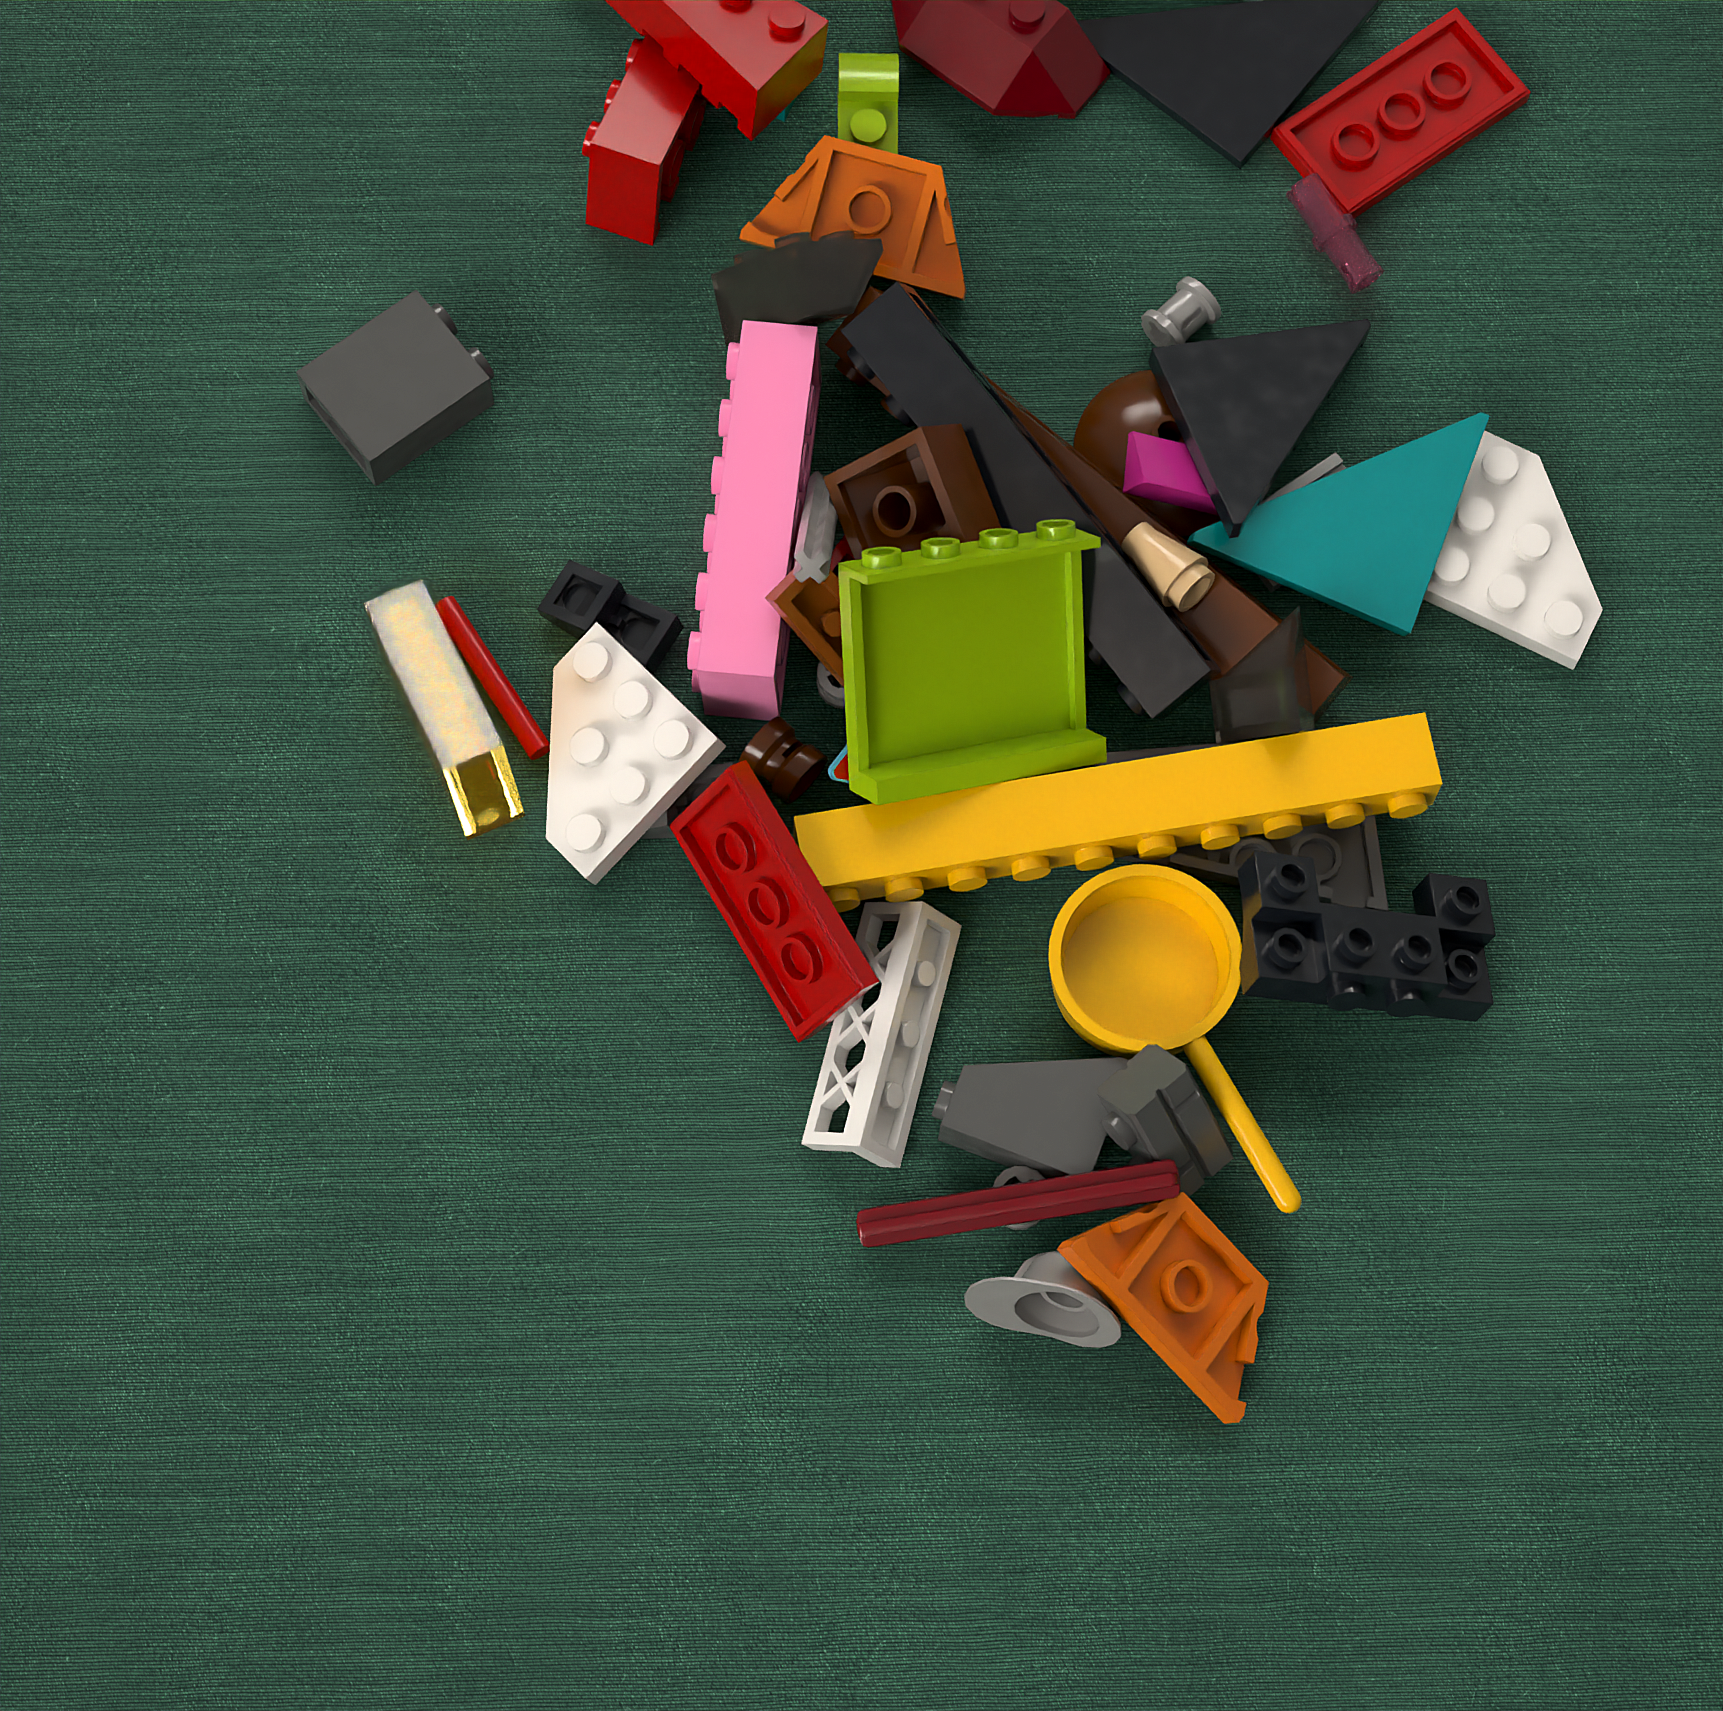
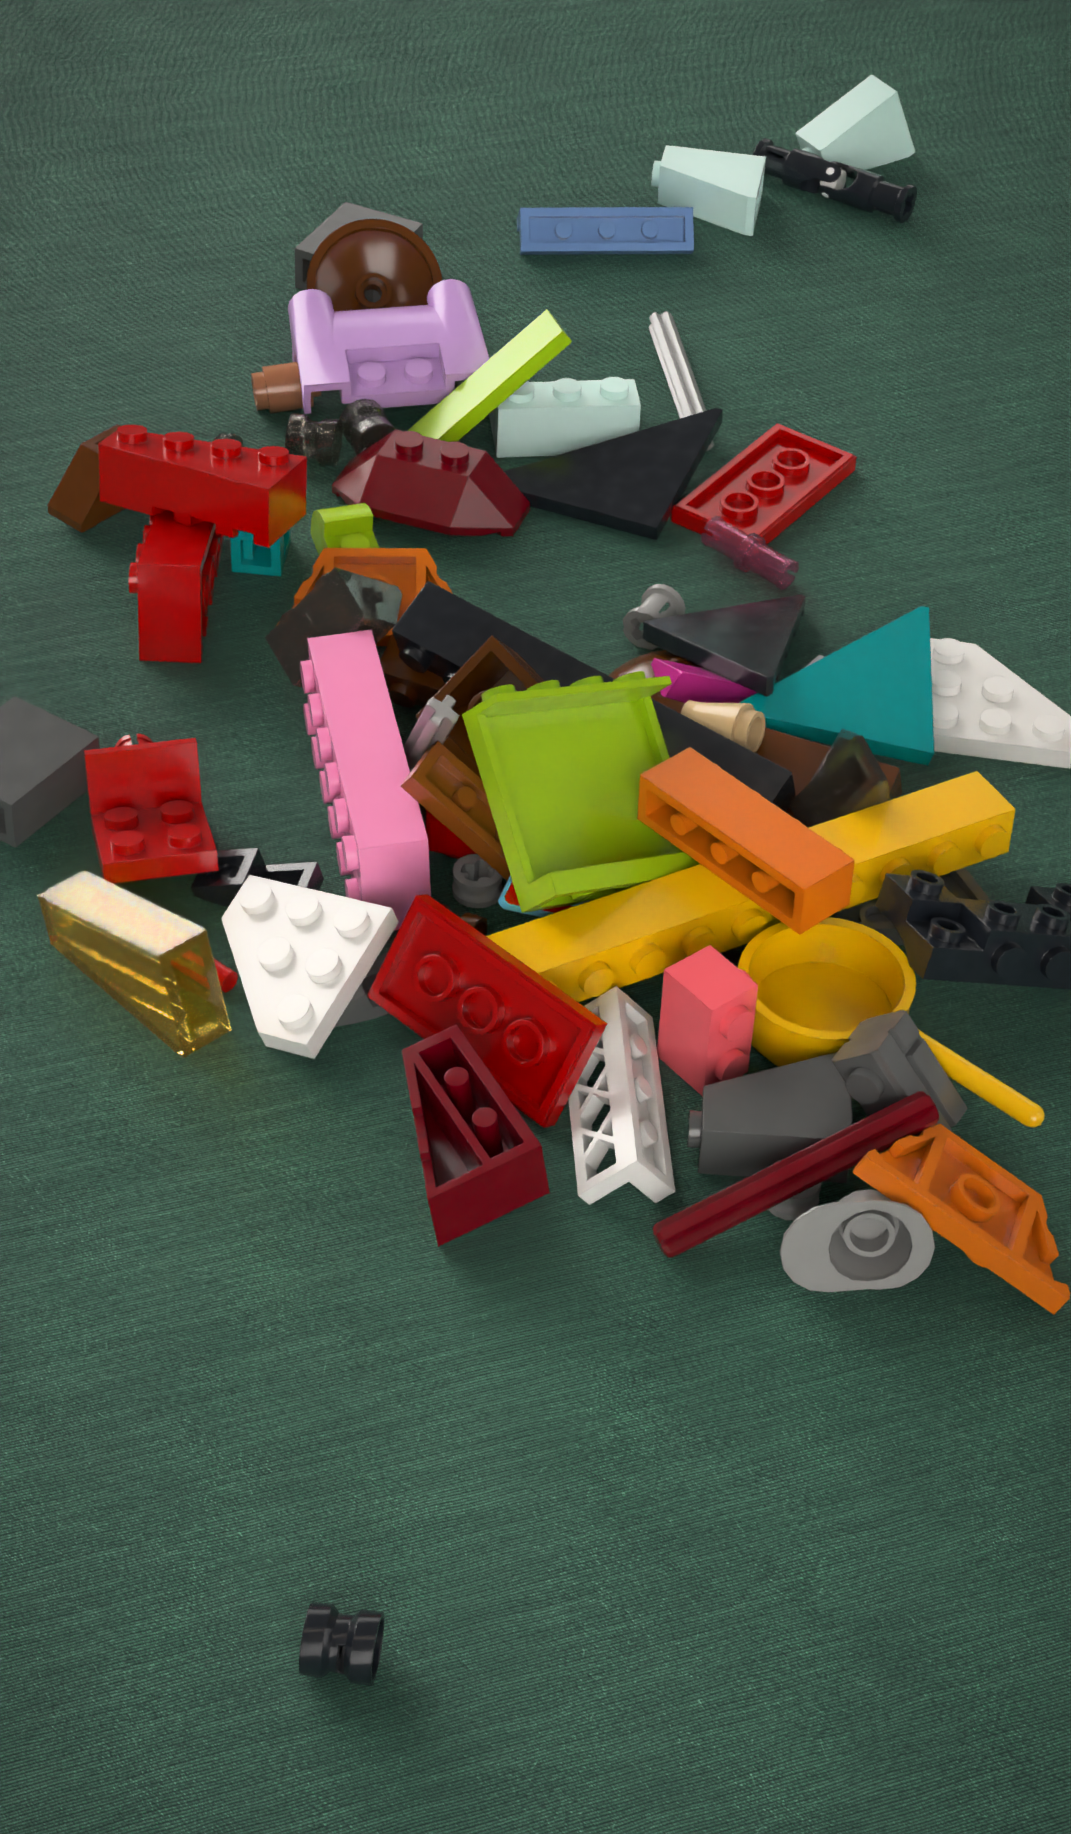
camera: 15 degrees left, 30 degrees down
(398, 1620) = (341, 1643): none -> black wheel
(517, 498) = (148, 810): none -> red plate
(703, 1054) = (469, 1137): none -> dark red wedge
(1002, 977) = (706, 1019): none -> coral brick
(1114, 768) = (745, 840): none -> orange brick

